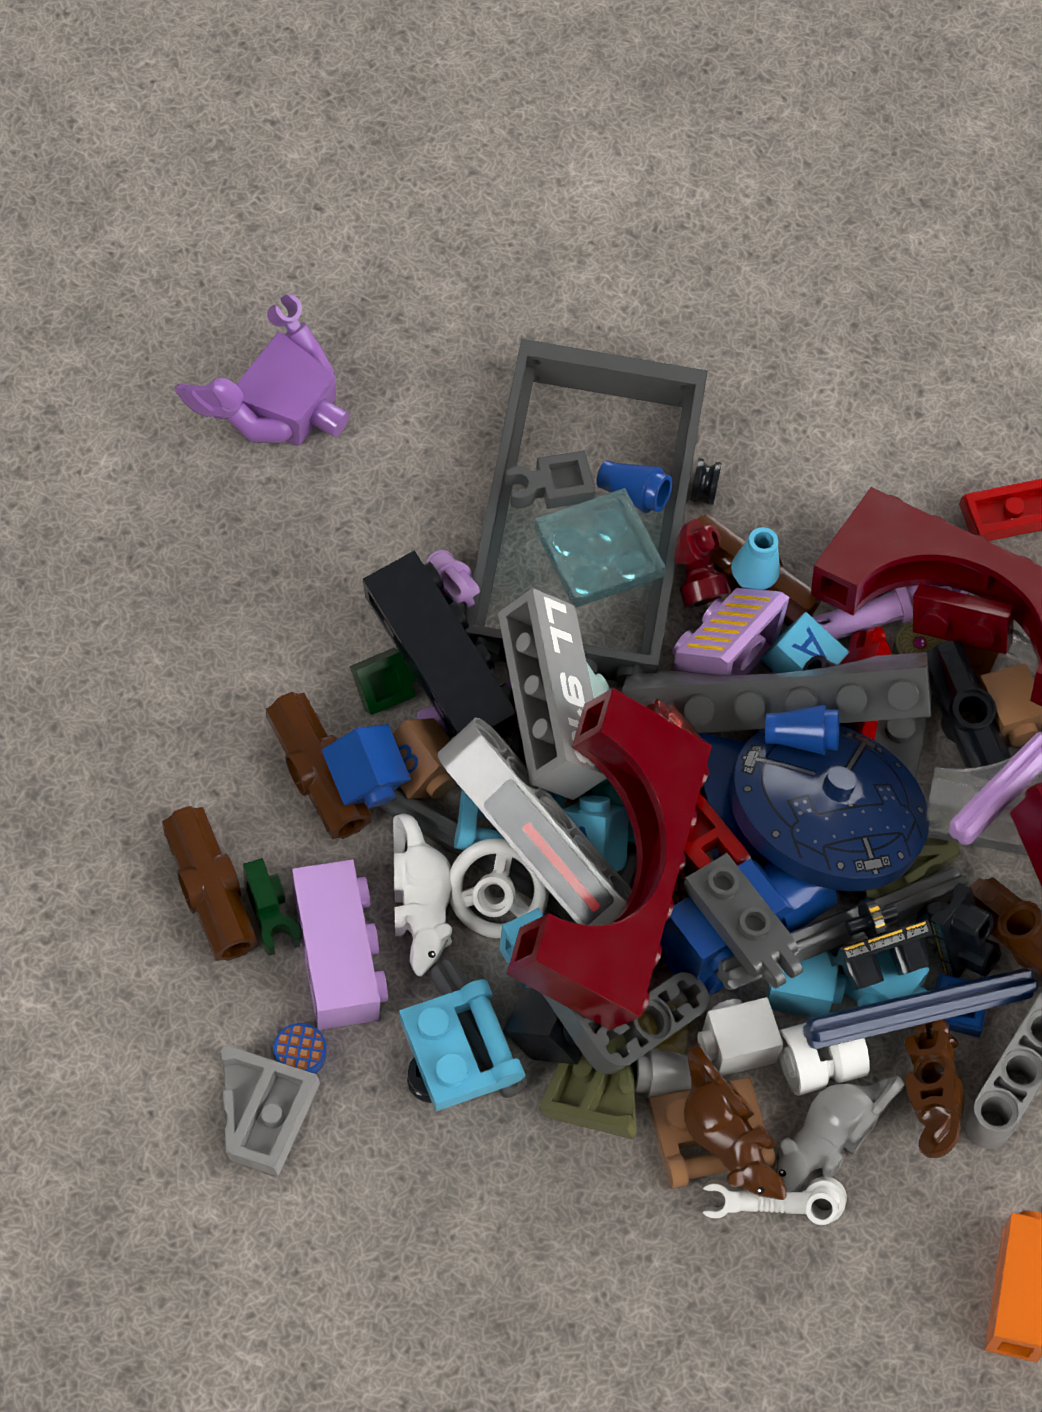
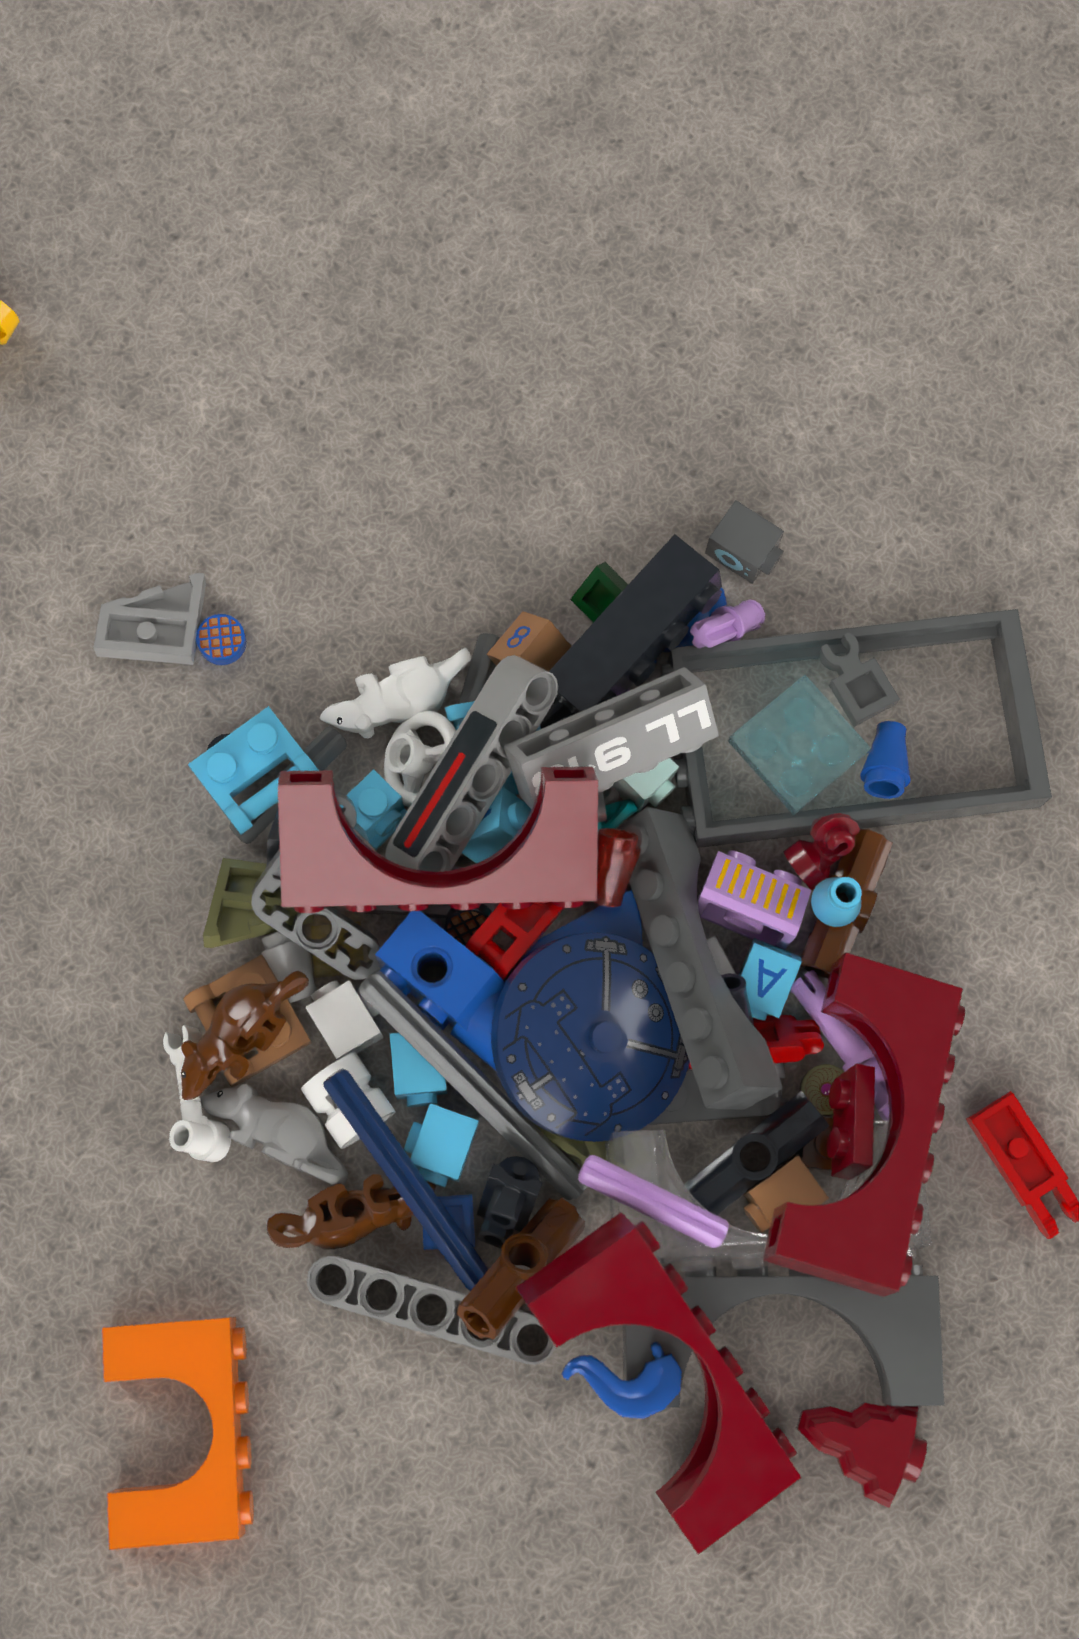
camera: 75 degrees right, 15 degrees up
(209, 883) = (352, 511): reddish brown piece -> none
(265, 897) = (351, 561): dark green plate -> none
(281, 392) = (873, 412): medium lavender torso -> none
(303, 740) = (499, 567): reddish brown piece -> none
(338, 944) = (326, 637): lavender brick -> none
(366, 766) = (494, 603): blue brick -> none
(369, 542) = (745, 543): none -> dark grey brick
(705, 481) = (933, 833): black bush -> none
(744, 920) = (422, 979): dark grey hinge -> none
(805, 729) = (650, 989): blue cone -> none
(860, 958) = (461, 1118): black hips -> none

